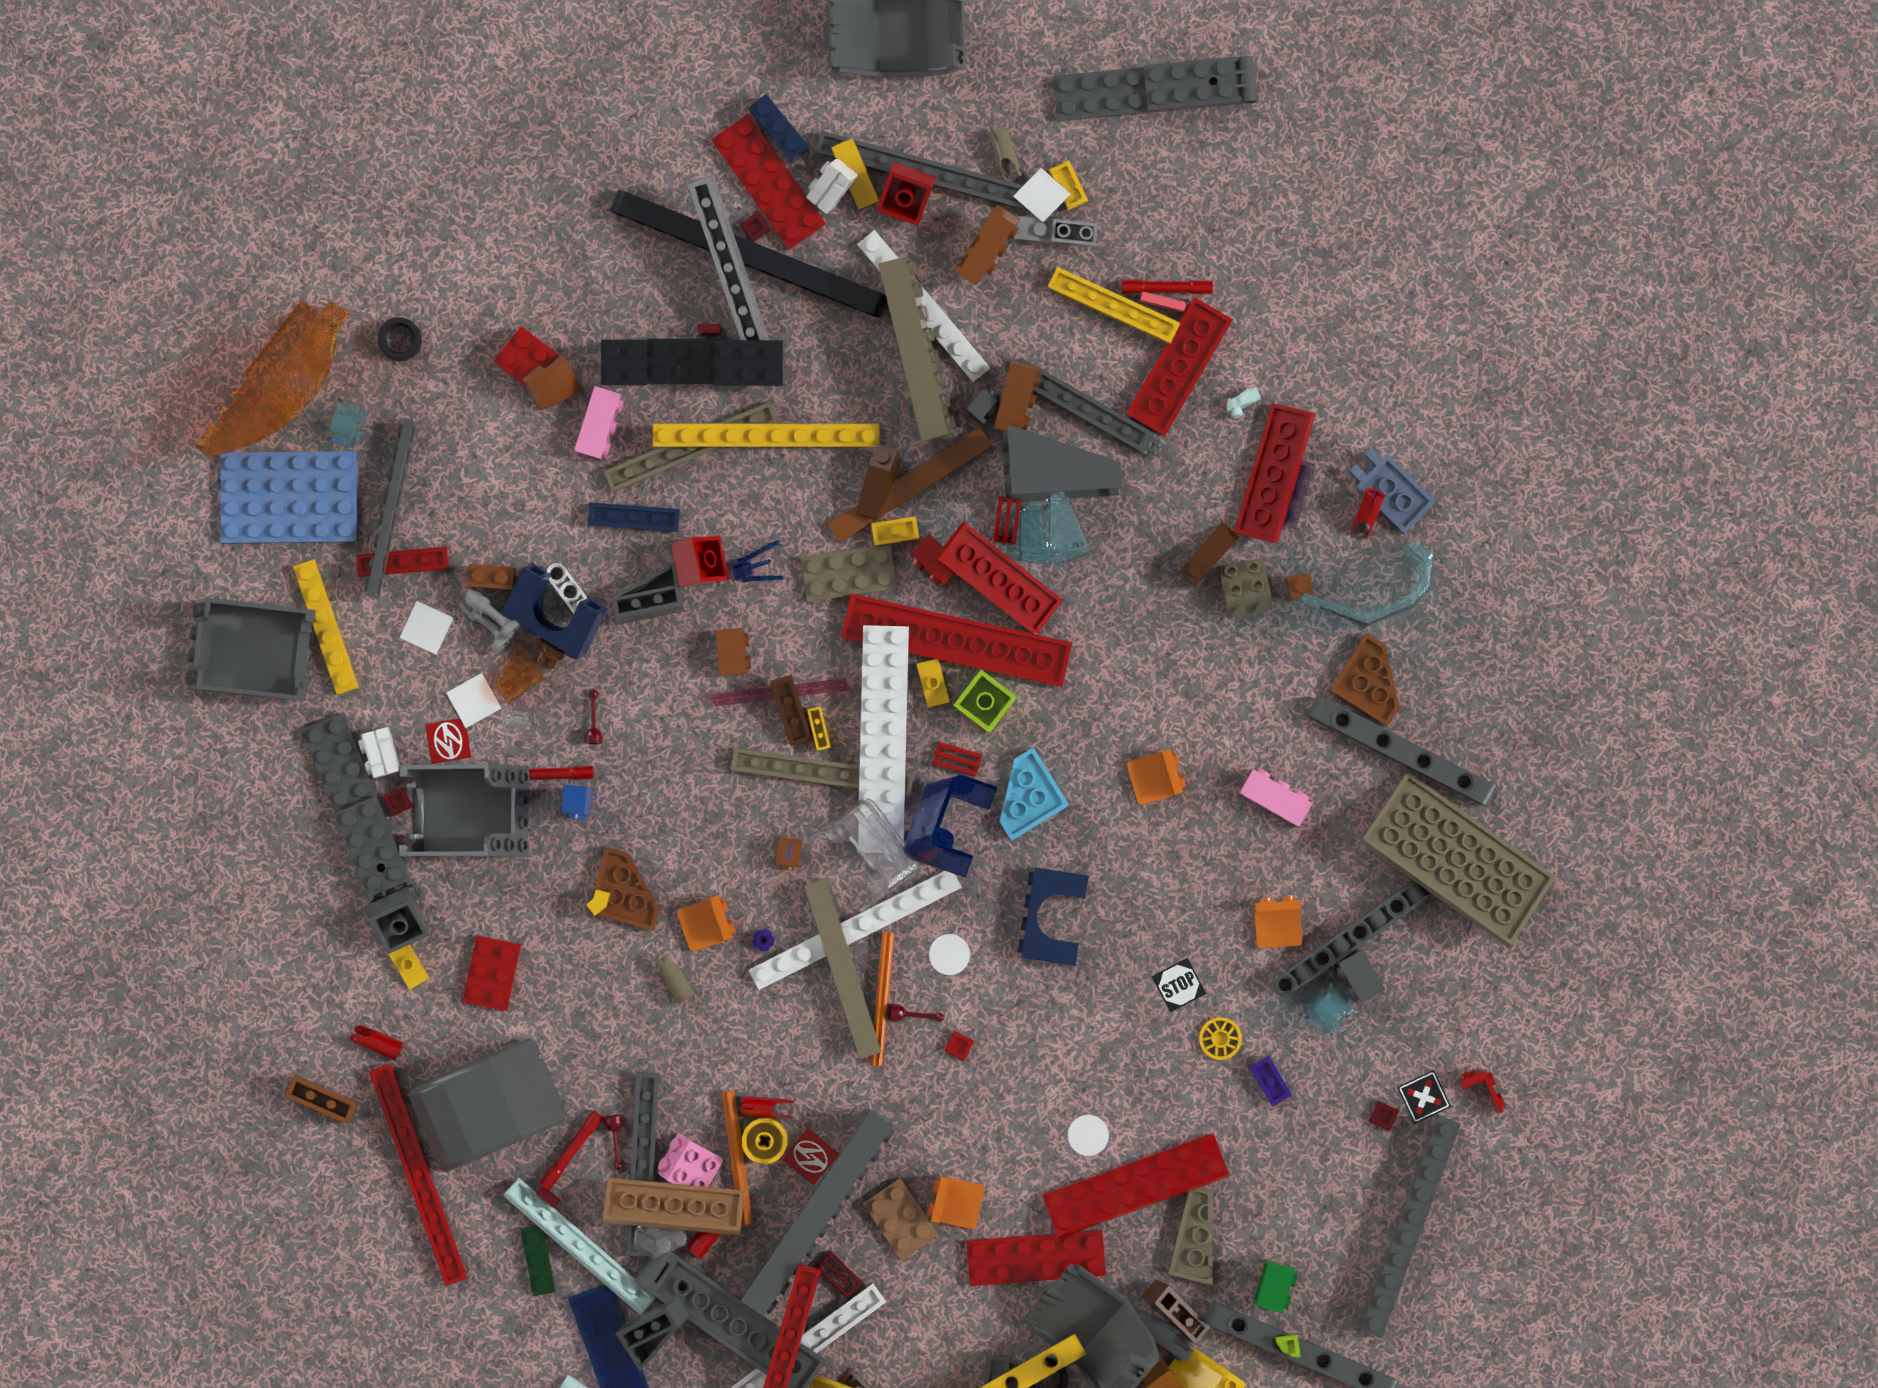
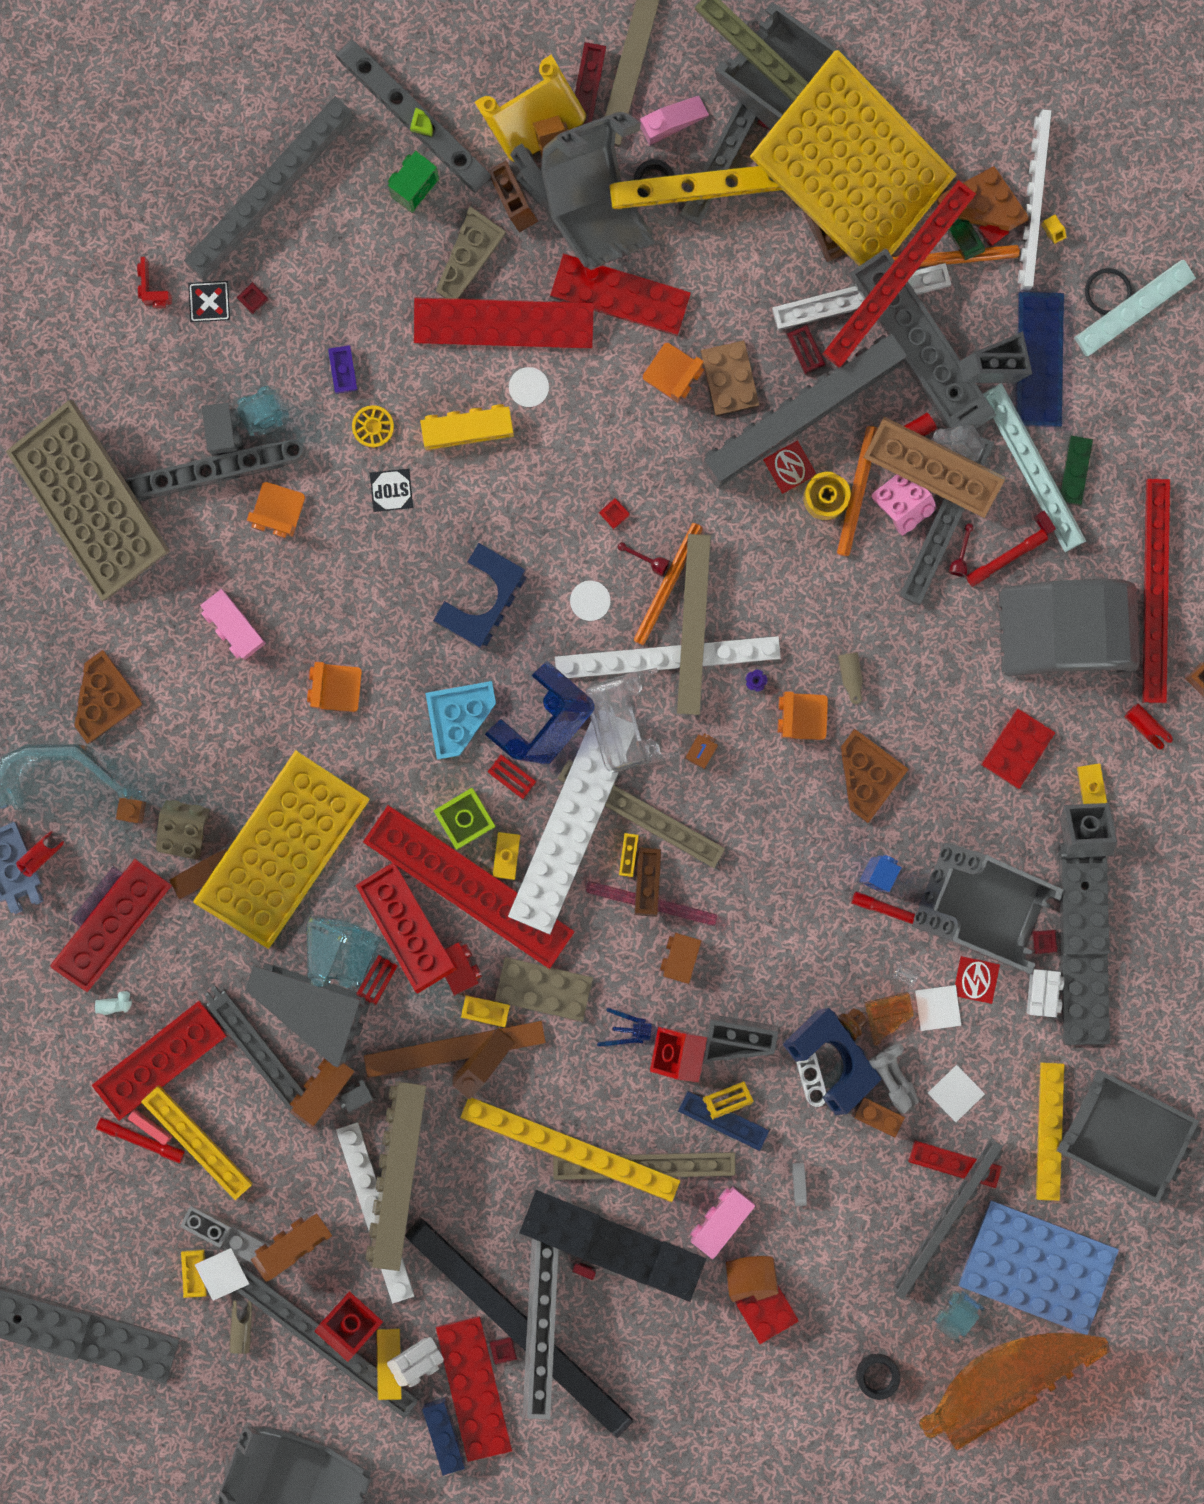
camera: 160 degrees left, 0 degrees up
(540, 486) = (799, 1184): none -> light grey beam
(593, 735) = (840, 931): dark red hinge -> none
(599, 902) = (895, 773): yellow piece -> none
(649, 525) = (711, 1107): none -> yellow tile
(763, 1107) = (815, 527): red piece -> none
(1130, 1071) = (467, 427): none -> yellow brick
(1143, 605) = (281, 850): none -> yellow plate
(1402, 751) = (98, 621): dark grey beam -> none

